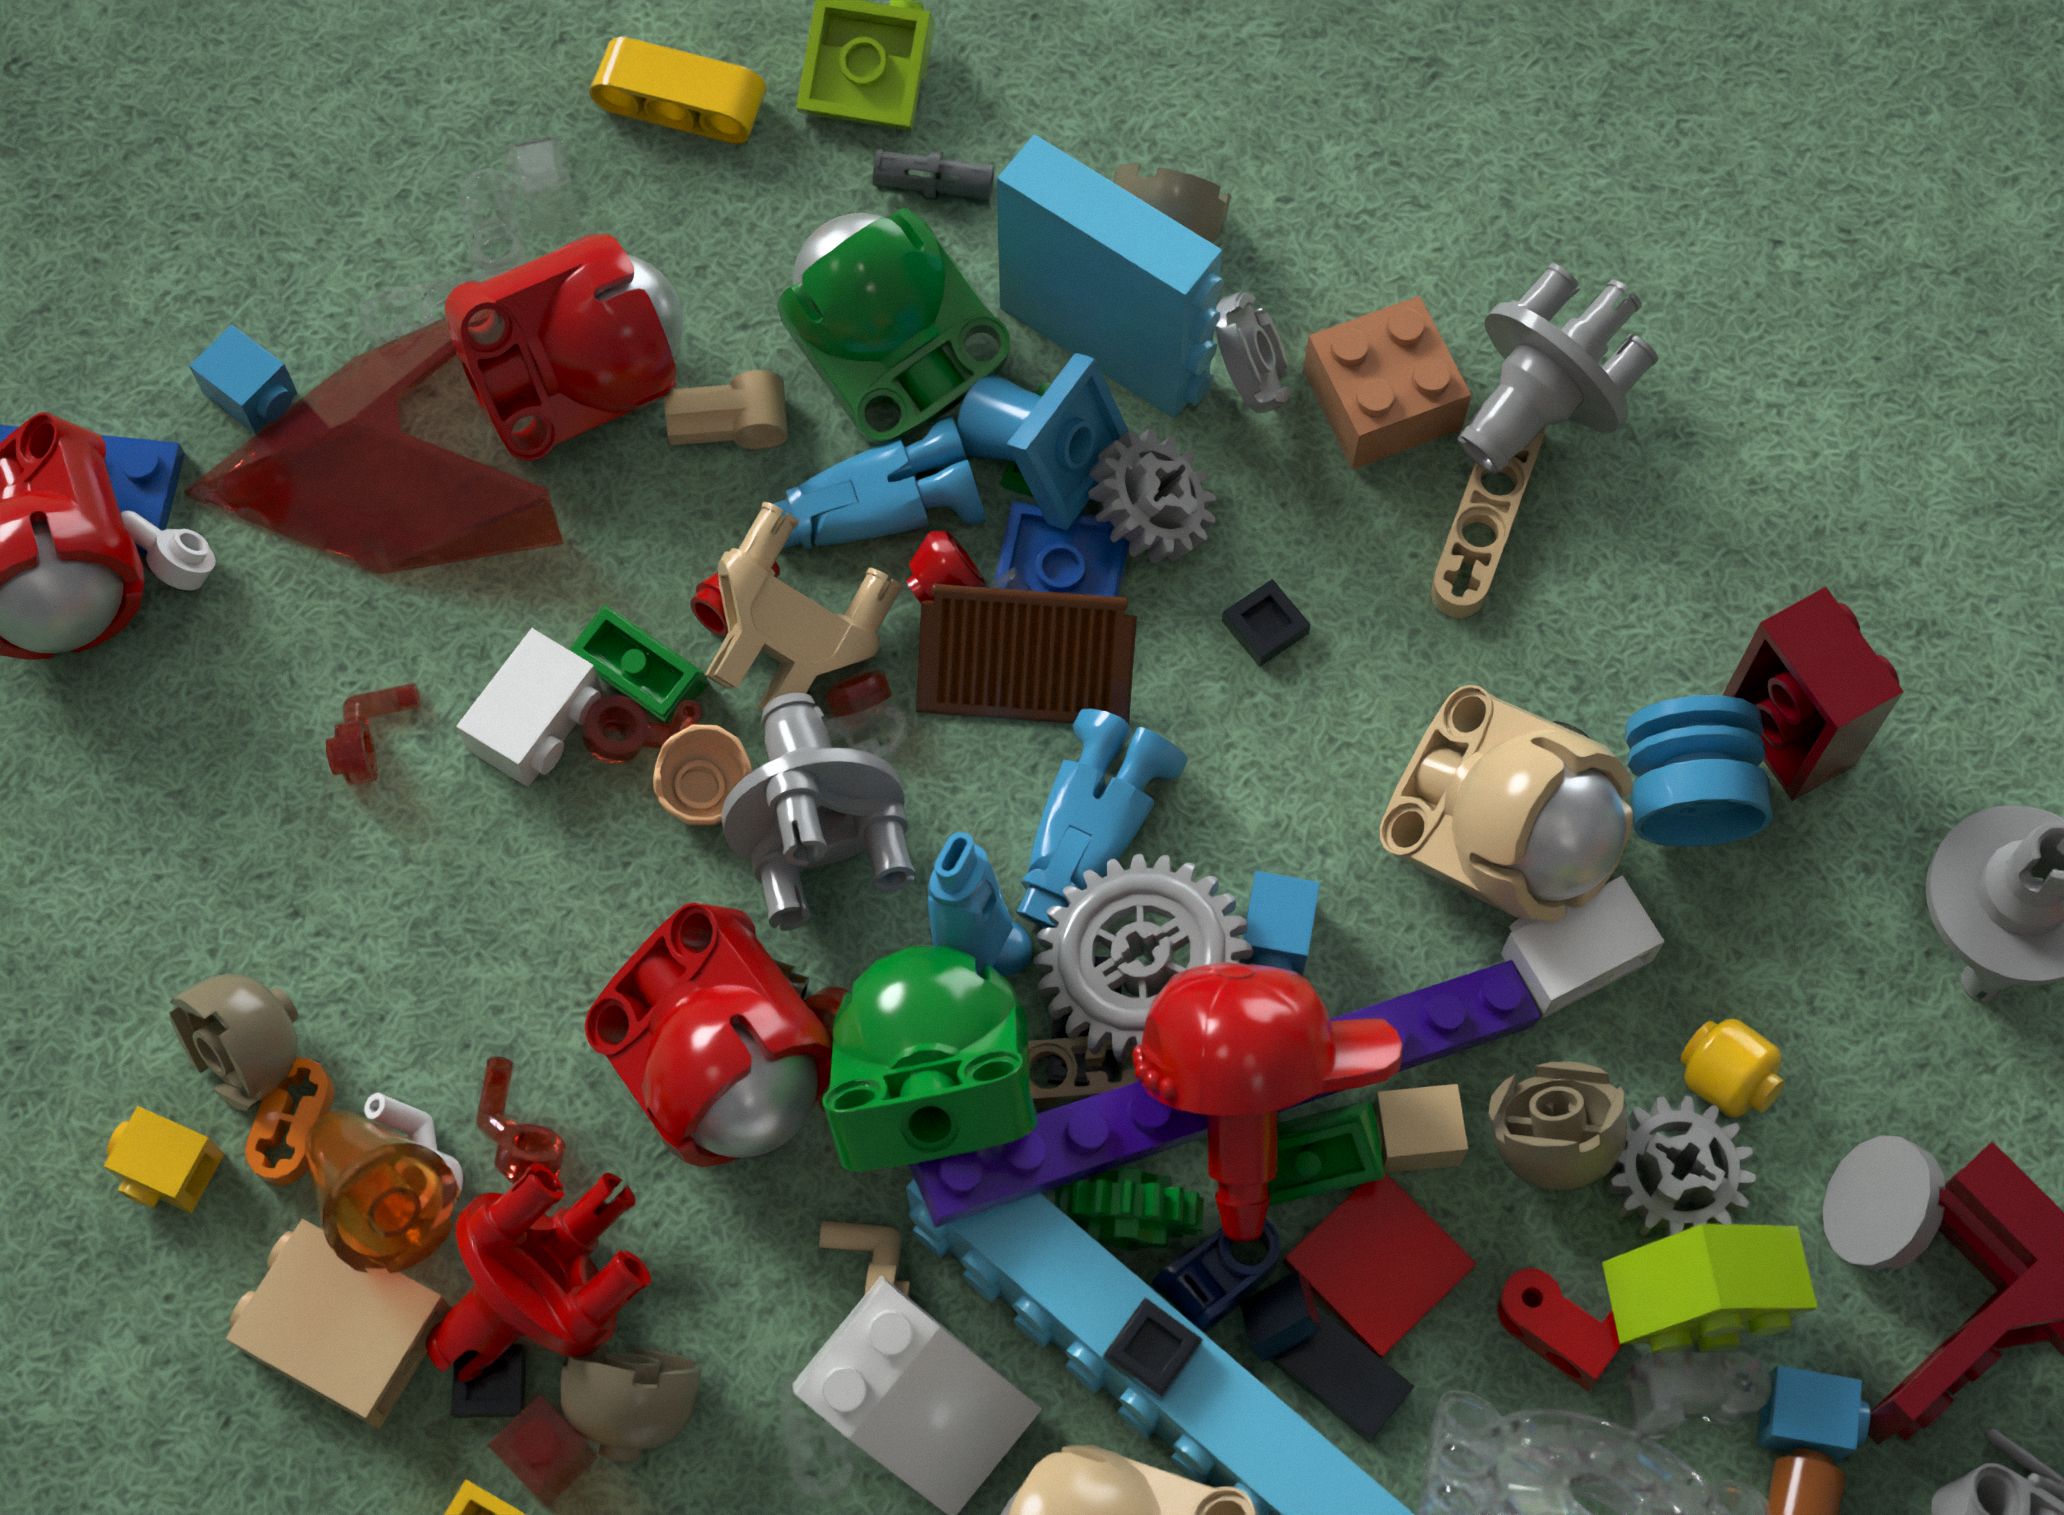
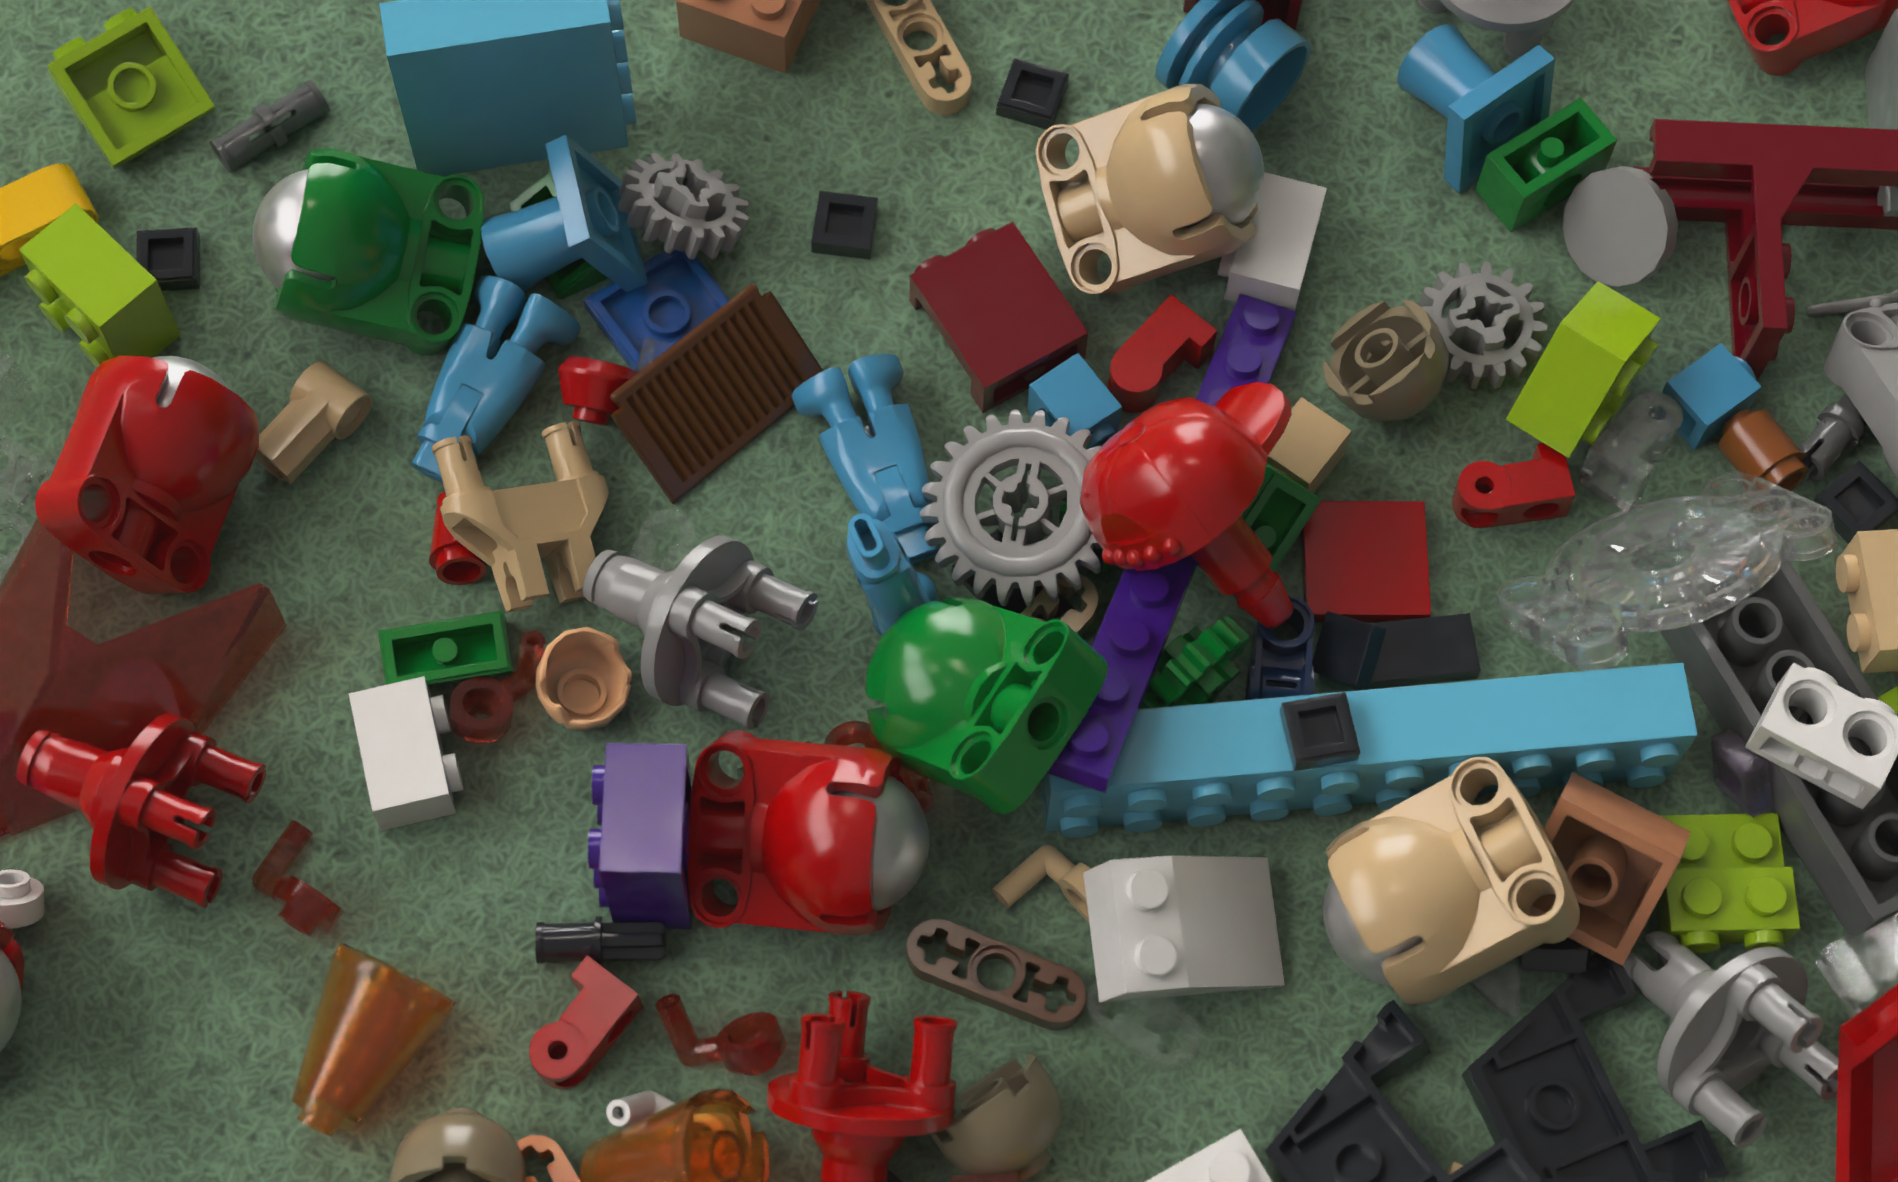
camera: 50 degrees left, 0 degrees up
(288, 877) = (362, 1037): none -> clear orange cone
(316, 568) = (139, 801): none -> red piece
(435, 1026) = (587, 1029): none -> red leg
(512, 974) = (600, 941): none -> black axle
(592, 917) = (643, 833): none -> brick
(676, 187) = (97, 290): none -> lime brick
(720, 1246) = (945, 969): none -> reddish brown beam
(764, 209) = (171, 257): none -> black tile
(858, 693) = (627, 524): clear red tile -> none
(1252, 352) = (658, 54): light grey tile -> none
(1298, 796) = (998, 313): none -> dark red panel
(1389, 941) = (1155, 351): none -> red leg
(1522, 655) = (1032, 94): none -> black tile
(1732, 1067) = (1443, 231): yellow head -> none
(1868, 1003) = (1479, 105): none -> dark azure plant
(1876, 1093) = (1544, 164): none -> green brick

